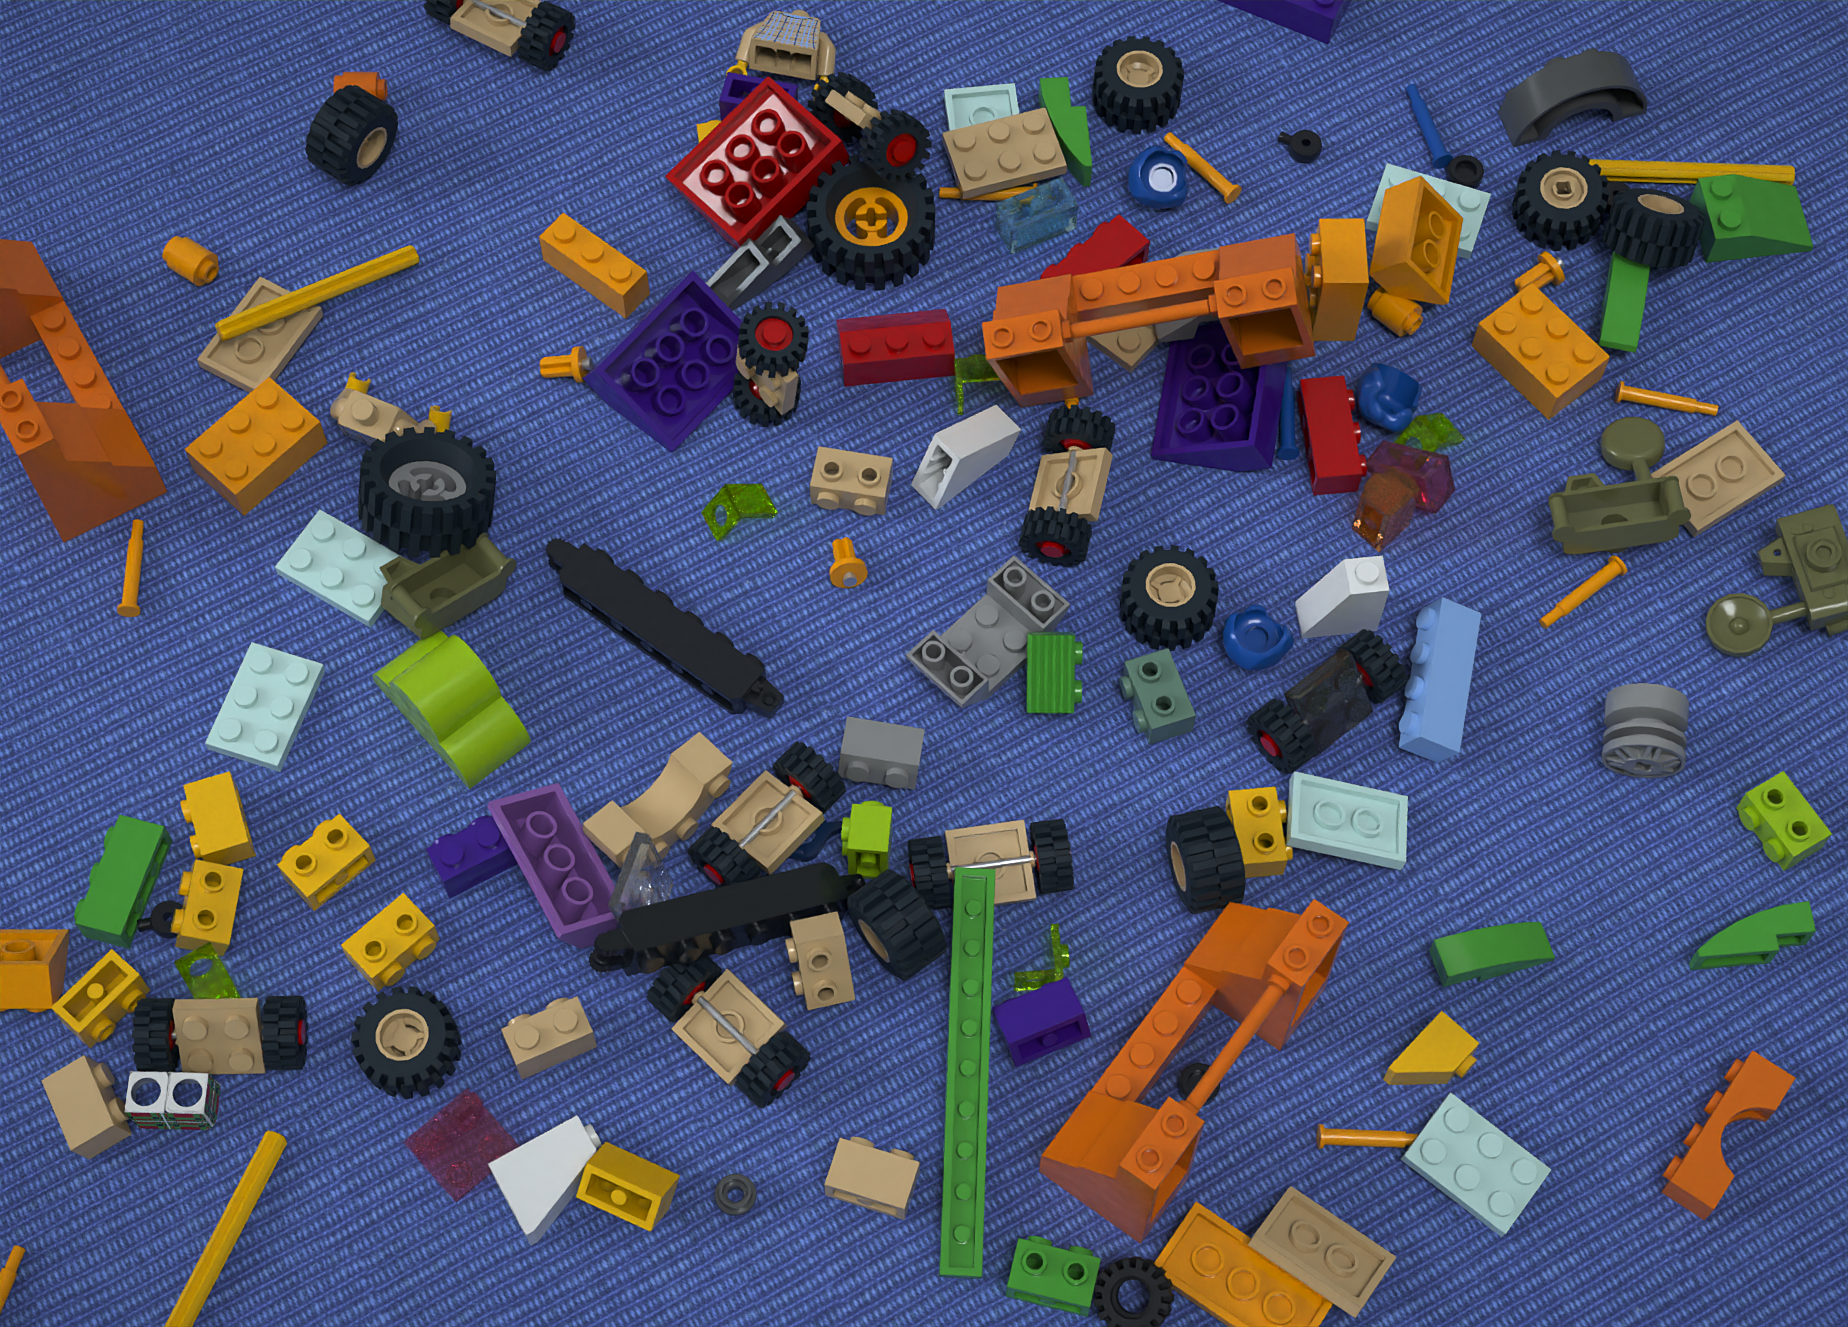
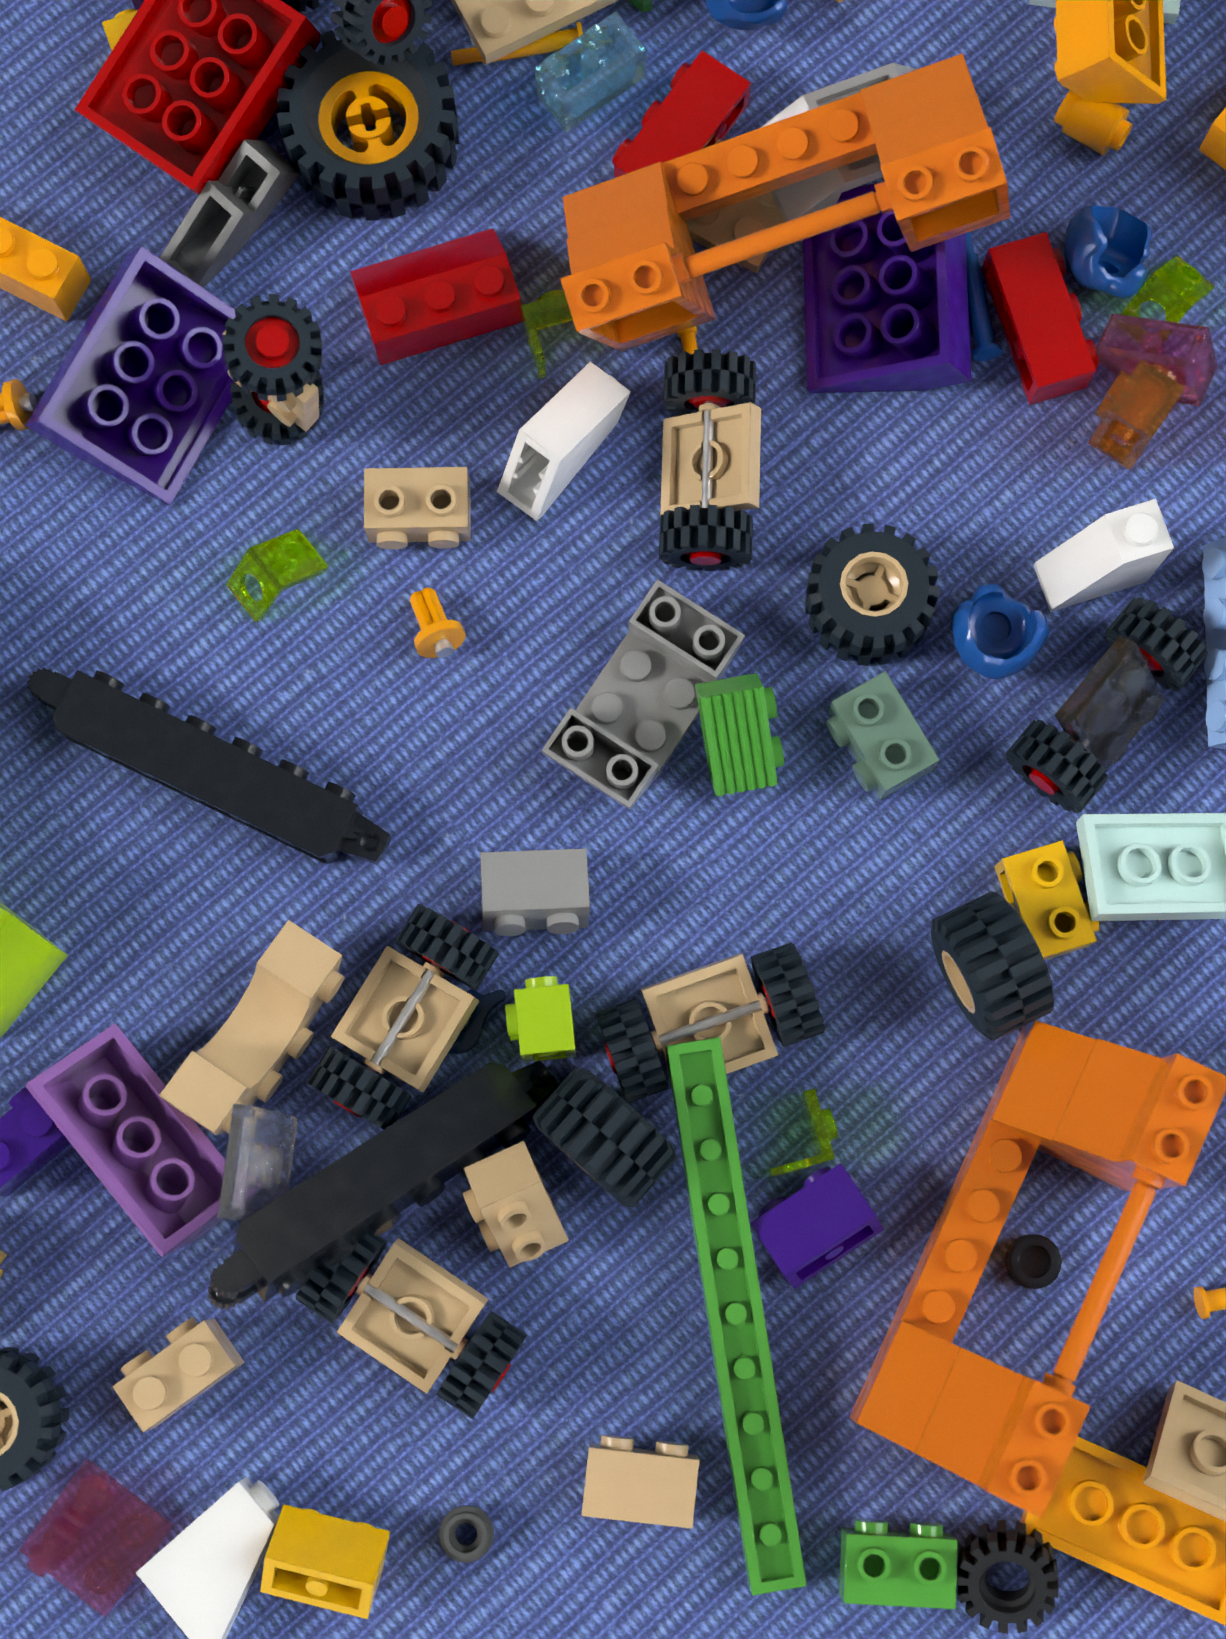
camera: 10 degrees left, 15 degrees up
(1336, 278) = (1020, 88): light orange brick -> none

